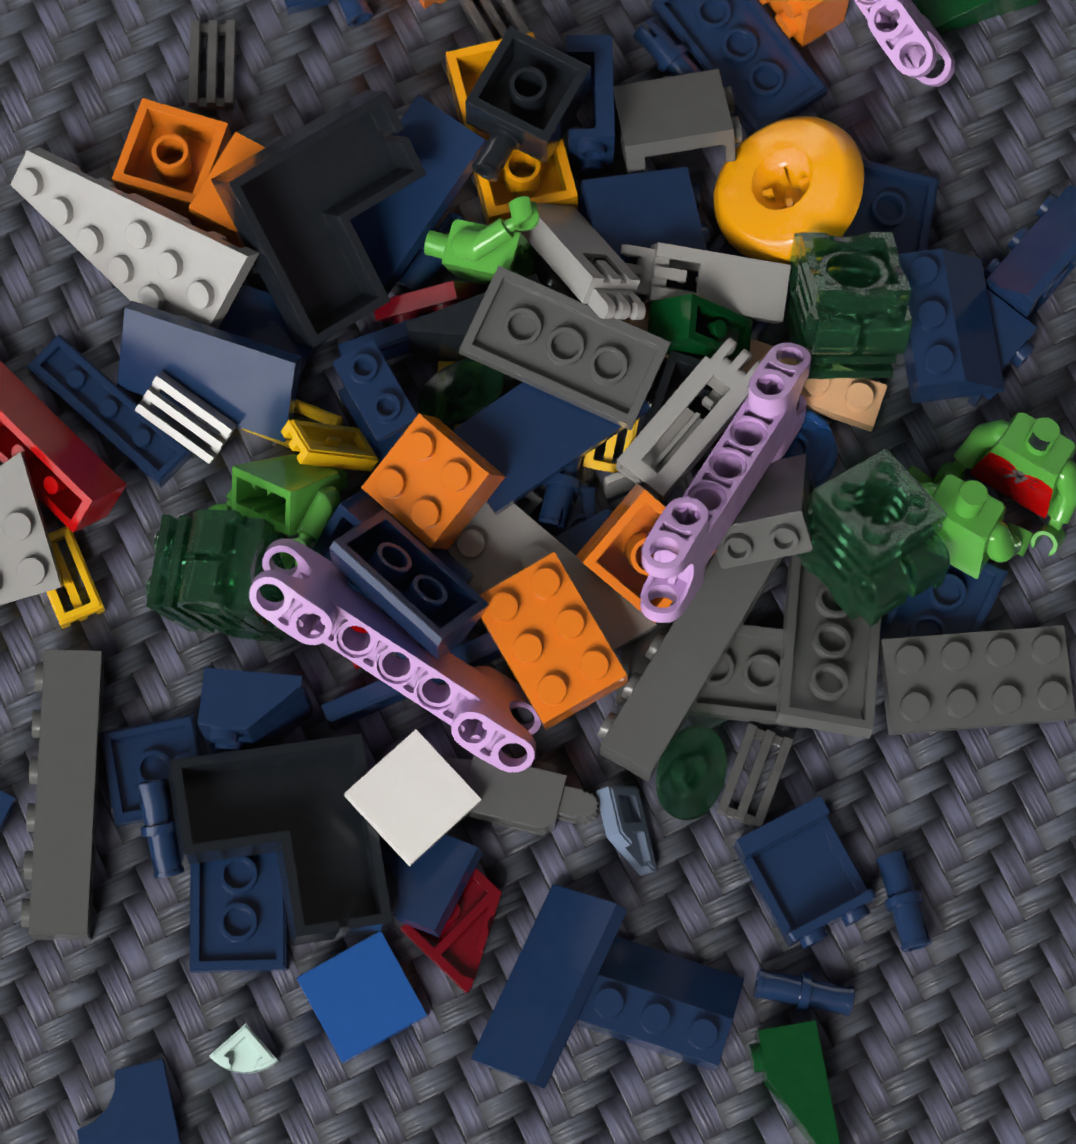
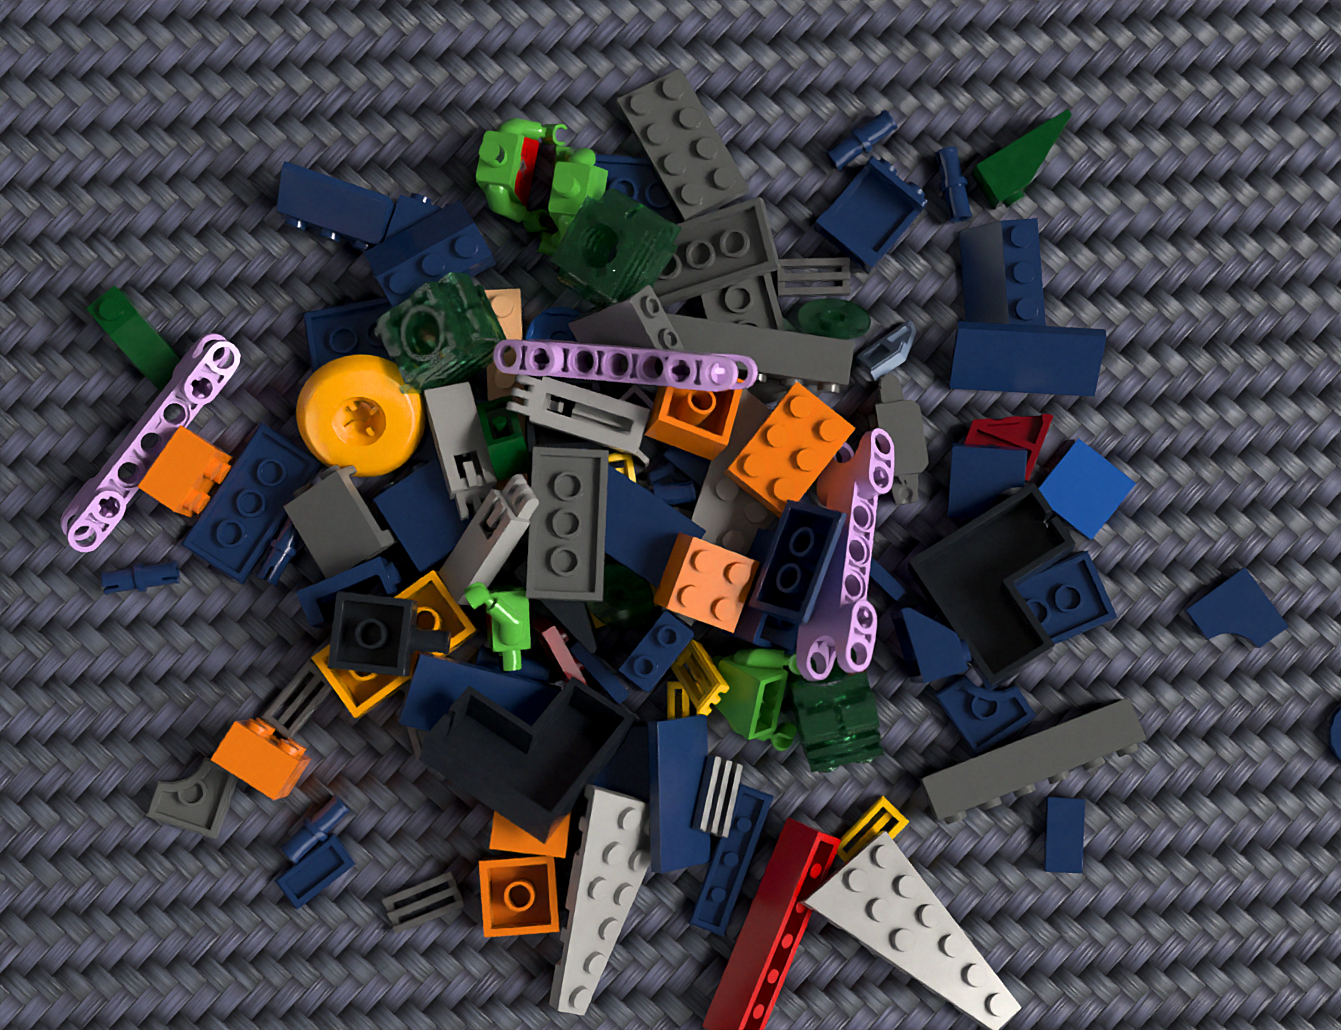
camera: 110 degrees left, 10 degrees up
(159, 828) = (1028, 681): dark blue pin -> none
(244, 1053) = (1156, 555): light aqua tile -> none
(412, 797) = (940, 504): white tile -> none

